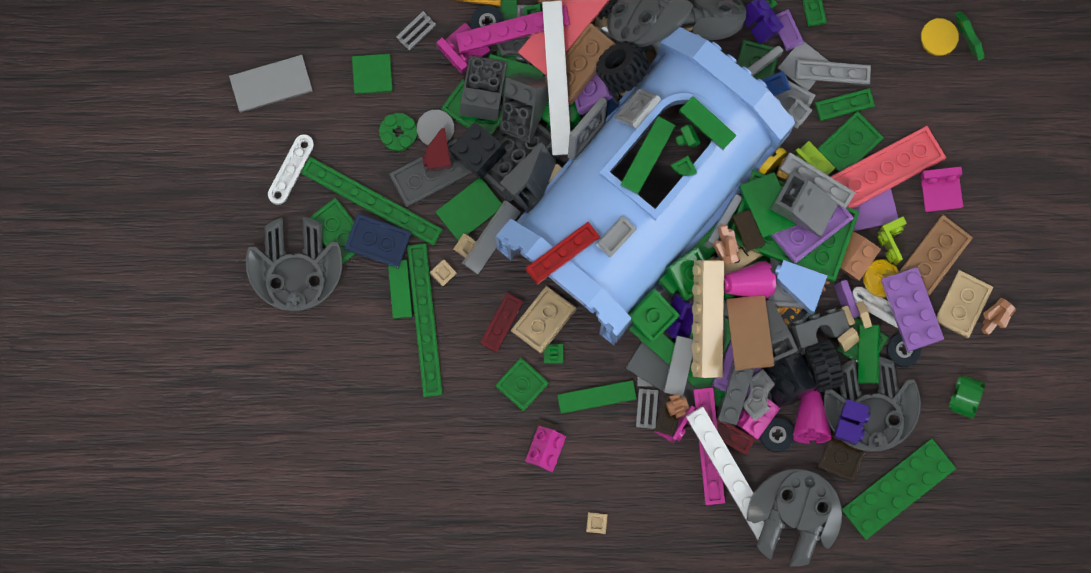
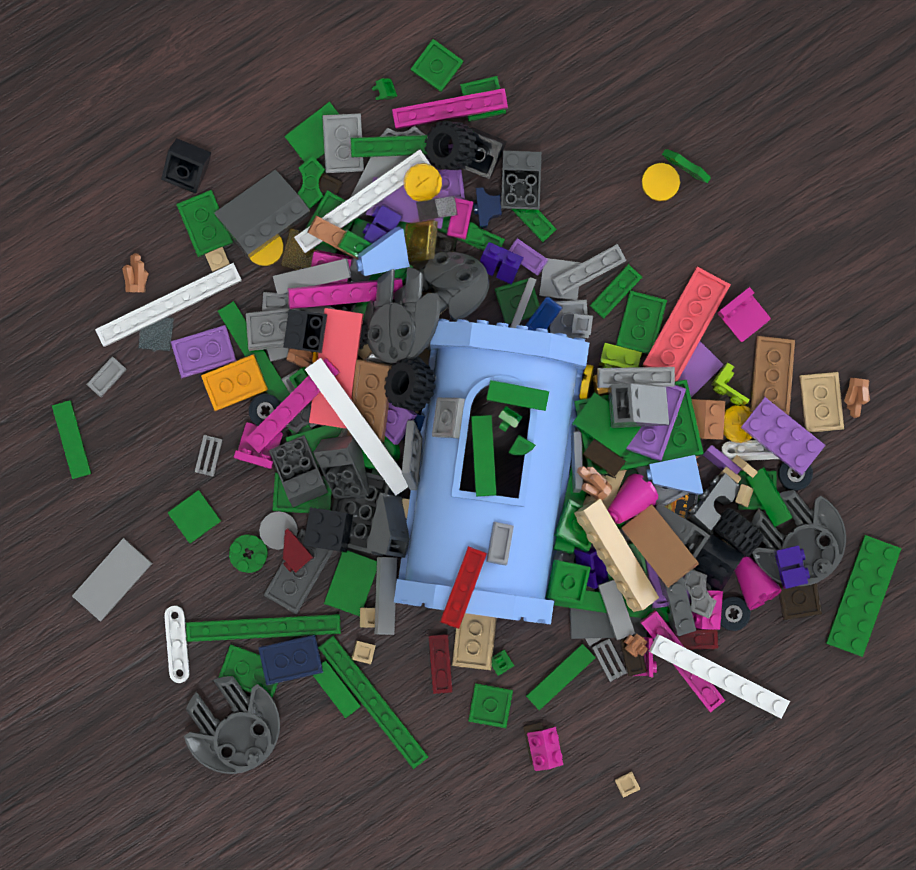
camera: 30 degrees left, 5 degrees up
(797, 511) = (790, 671): dark grey piece -> none
(968, 396) = (875, 482): green brick -> none

